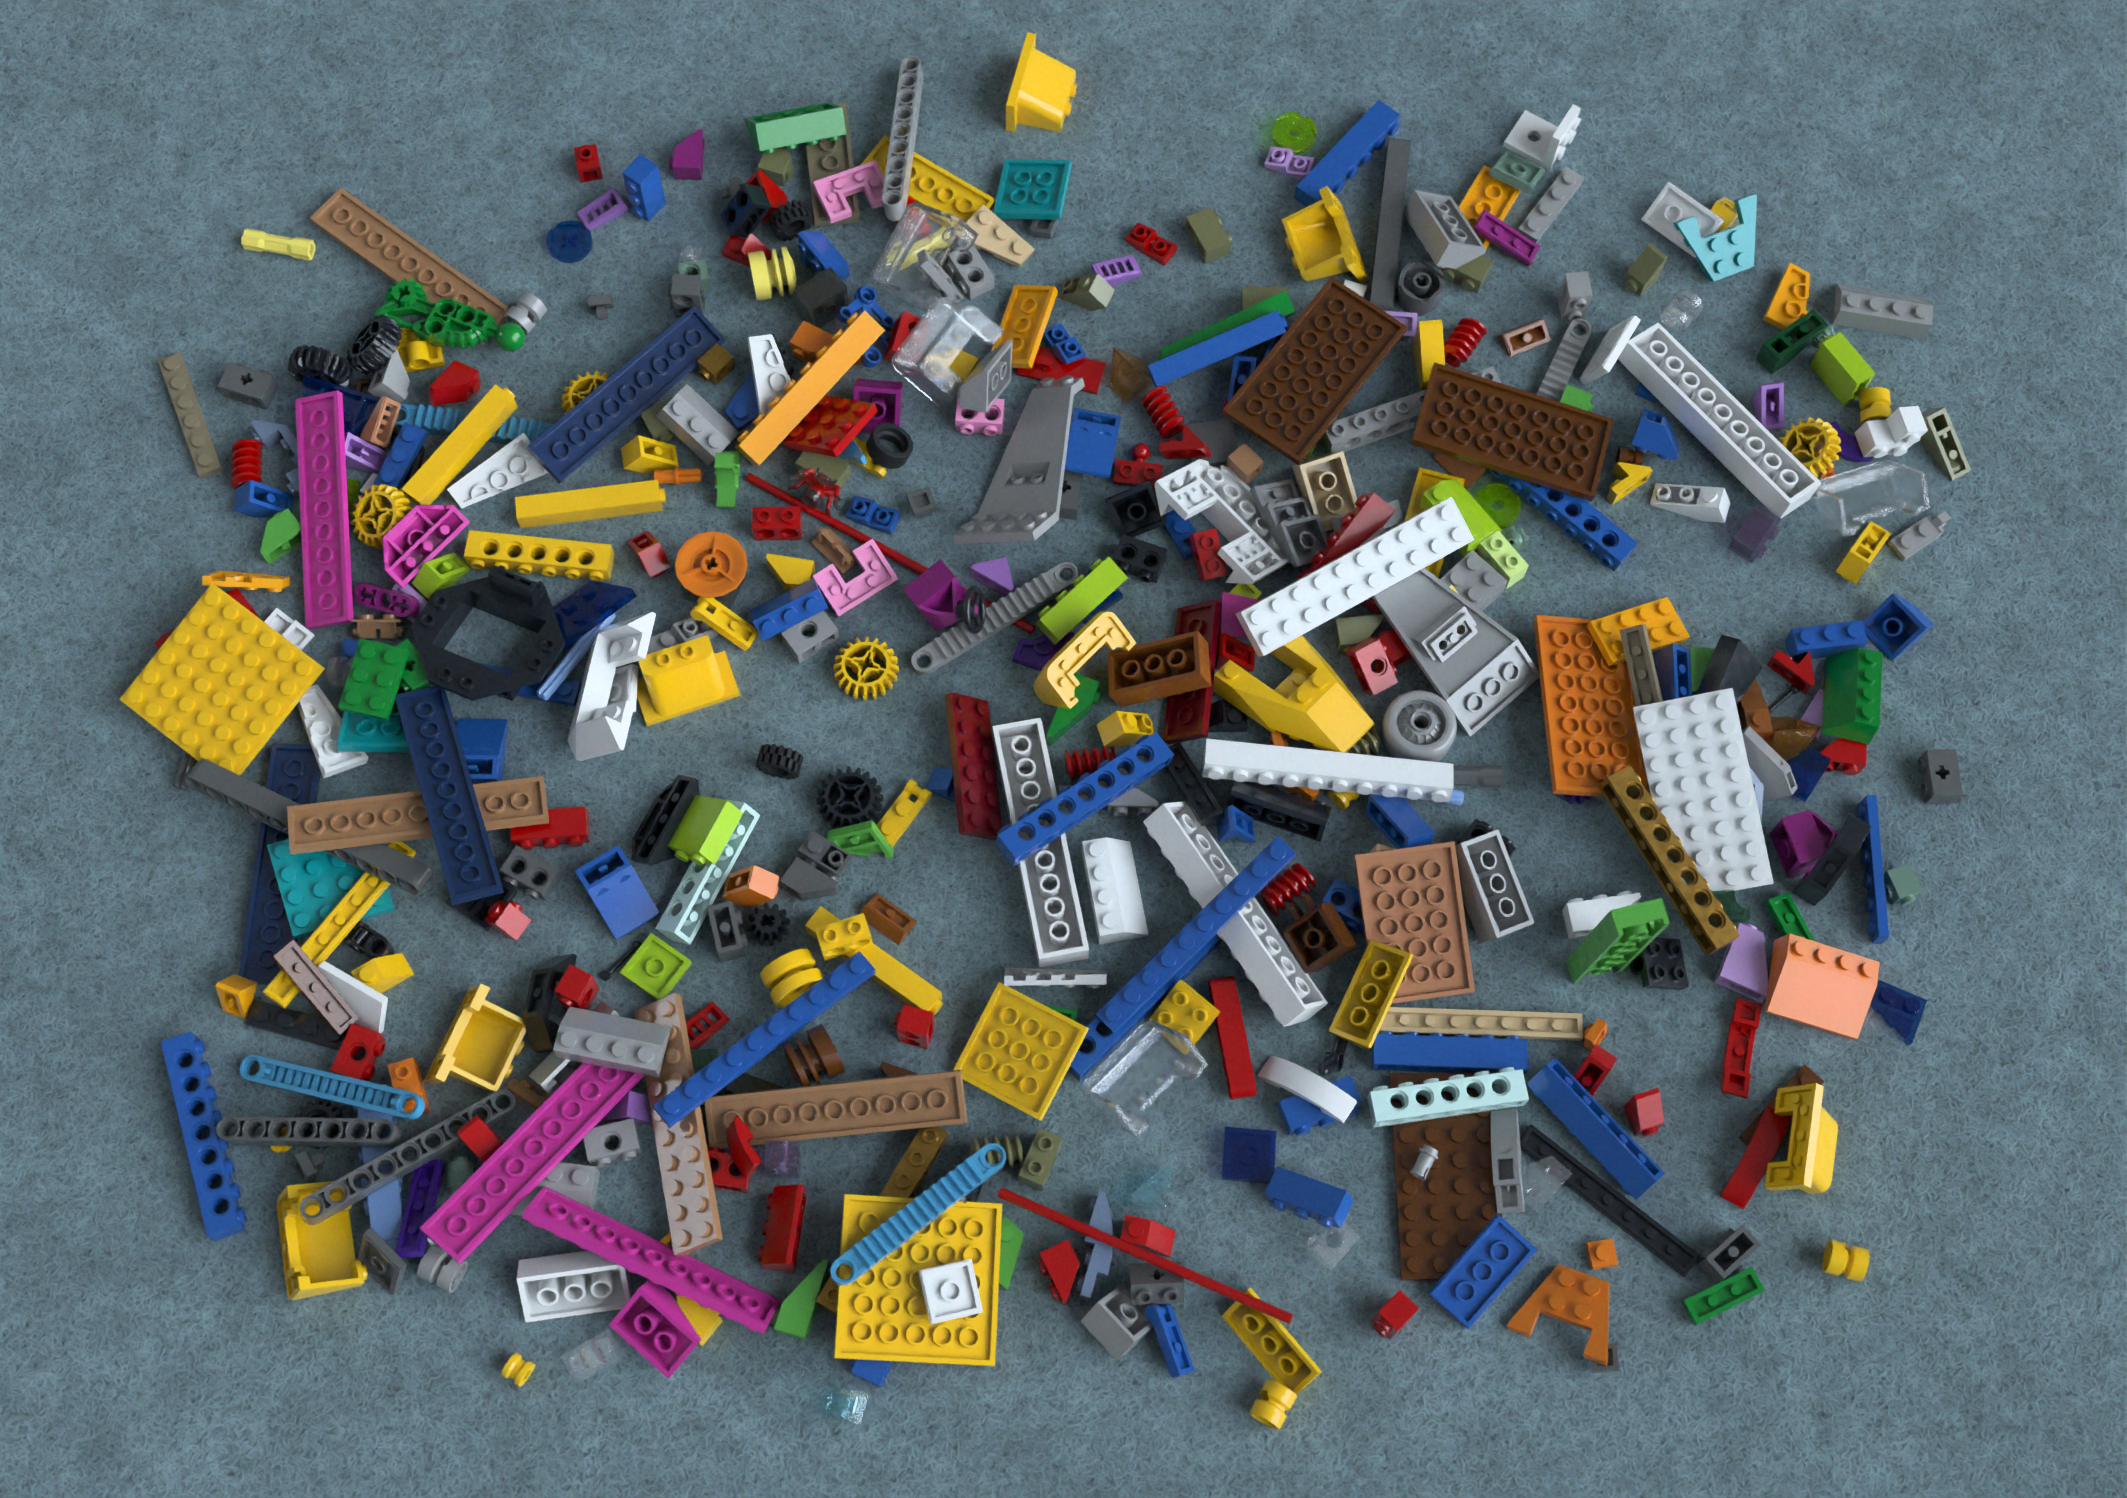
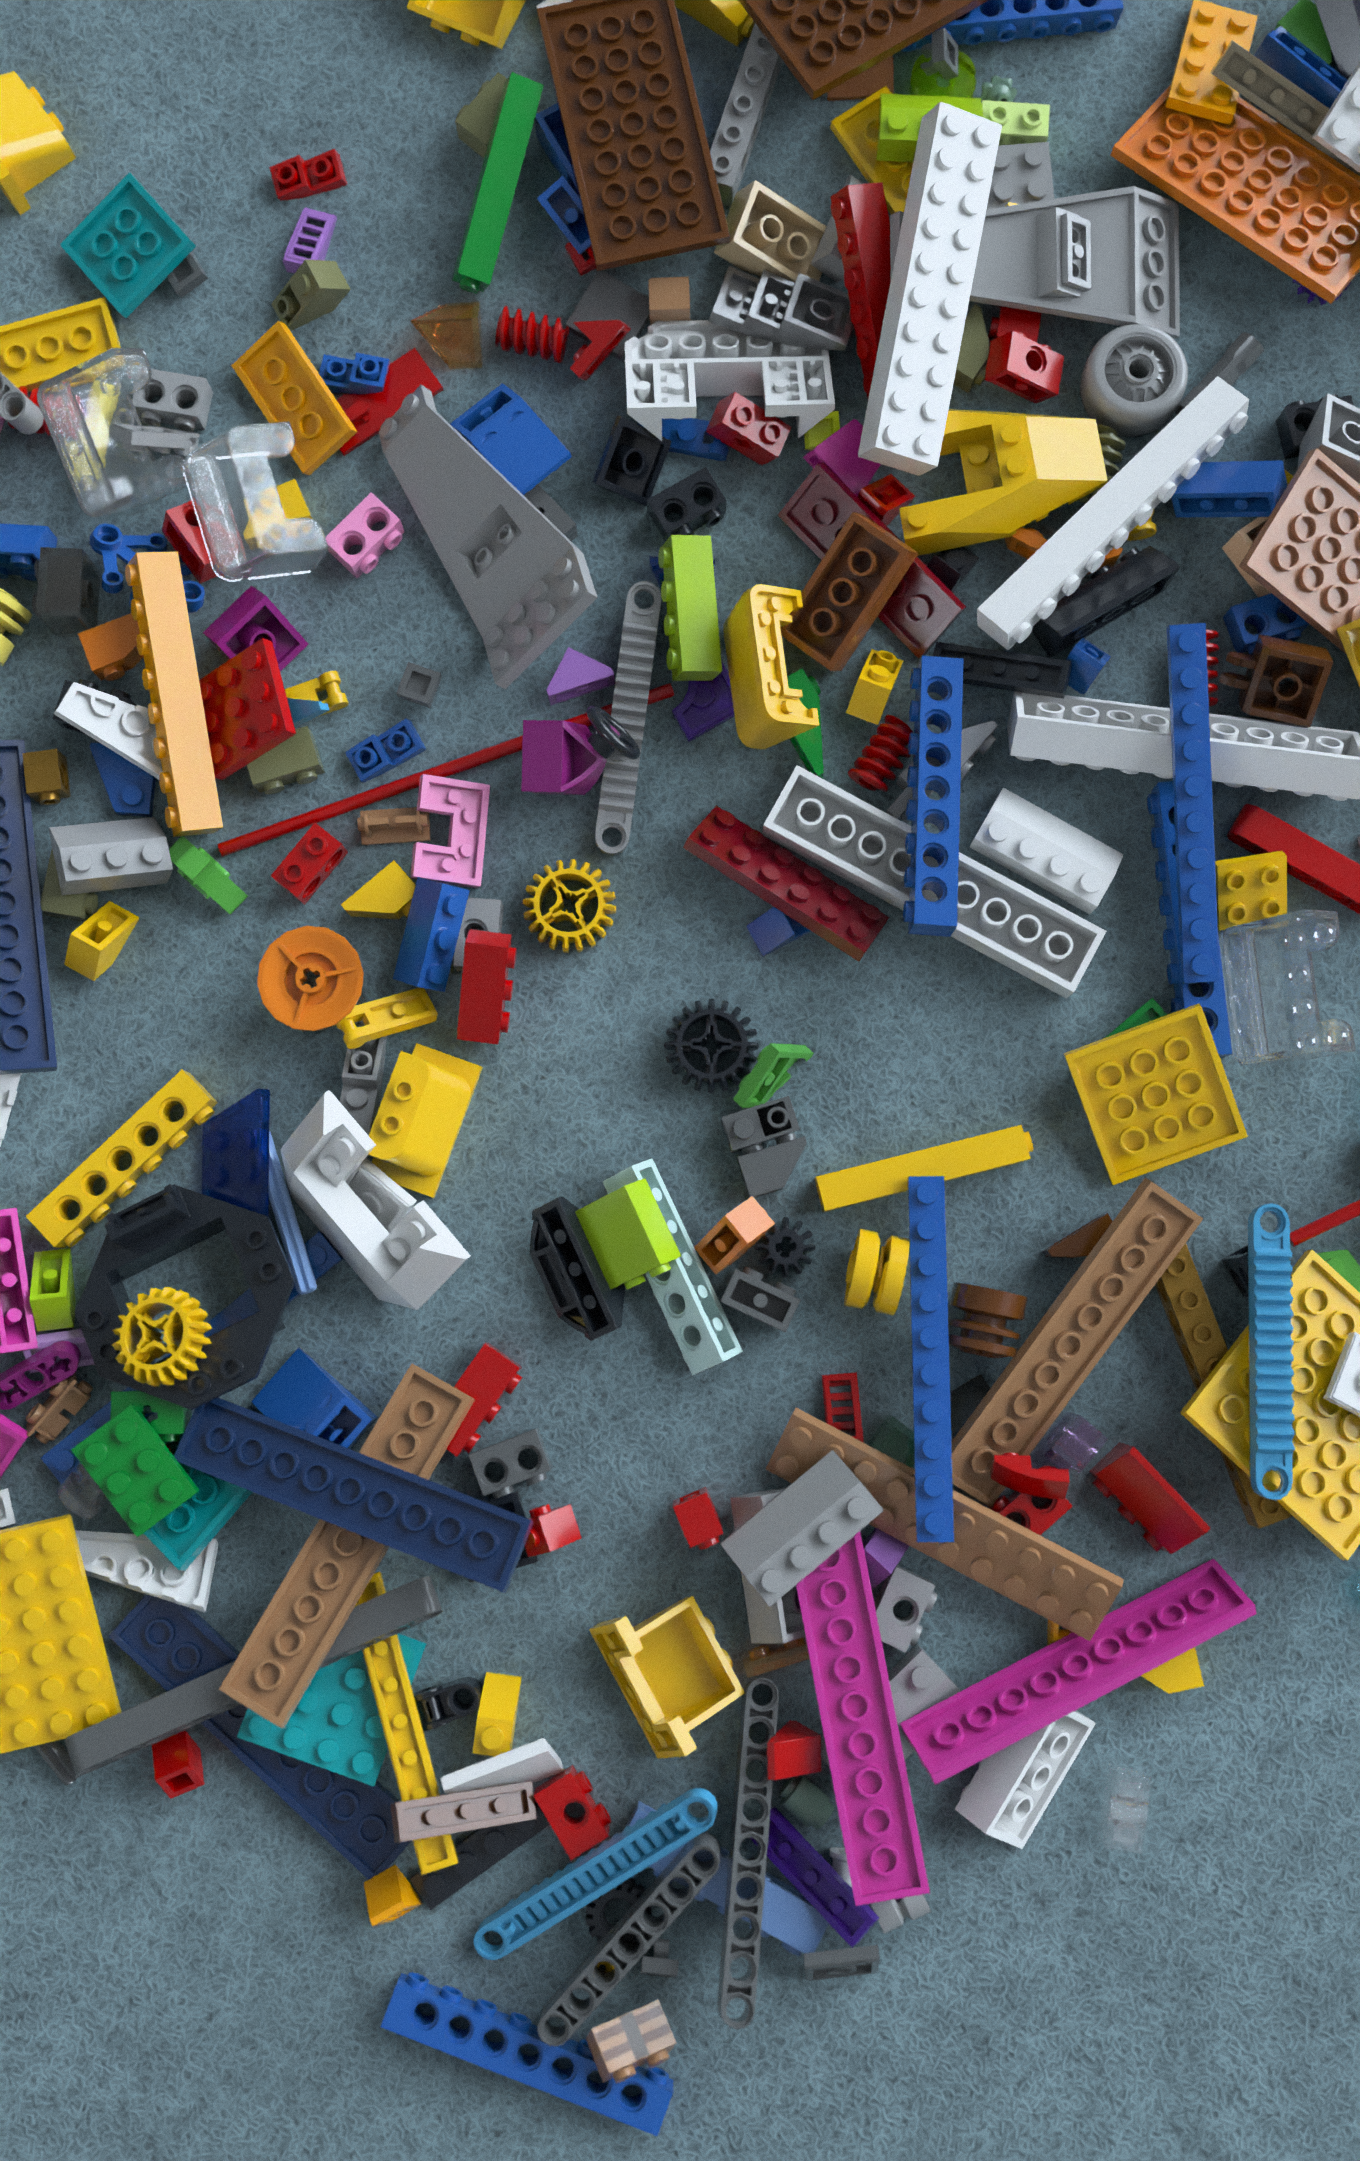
camera: 45 degrees left, 15 degrees up
(228, 829) = (177, 1764): none -> red brick
(251, 1180) = (631, 2042): none -> brick
(316, 1256) = (789, 2026): yellow windscreen -> none
(408, 1077) = (655, 1780): orange brick -> none
(456, 636) = (141, 1338): none -> yellow gear
(518, 1369) = (1073, 1898): yellow wheel -> none
(539, 999) = (675, 1562): black slope -> none
(589, 503) = (104, 1053): yellow brick -> none
(606, 974) = (695, 1466): black hinge -> none
(617, 892) = (615, 1384): blue slope -> none
(649, 554) = (225, 1034): red slope -> none
(656, 967) = (735, 1407): lime plate -> none
(656, 1328) = (1154, 1721): dark pink slope -> none
(678, 475) = (152, 928): orange axle -> none
(779, 761) = (607, 1088): black tyre -> none
(782, 656) = (485, 986): none -> red brick
(799, 1308) = (1241, 1544): bright green slope -> none
(816, 489) = (308, 790): animal -> none
(844, 936) = (881, 1181): yellow brick -> none
(888, 918) = (879, 1113): dark orange slope -> none
(895, 435) = (319, 682): black tyre -> none
(903, 812) = (771, 1001): yellow plate -> none
(914, 1026) = (1038, 1184): red brick -> none
(987, 379) = (332, 490): light grey slope -> none
(999, 238) = (159, 332): tan wing -> none
(1012, 1149) = (1237, 1207): olive piece -> none
(1040, 1159) = (1285, 1169): olive brick -> none
(1046, 977) = (1088, 1005): light grey wing -> none
(1137, 472) = (580, 422): red plate -> none
(1208, 235) = (353, 104): olive brick -> none
(1217, 348) = (515, 208): blue brick -> none
(1505, 492) = (943, 53): none -> dark grey tile

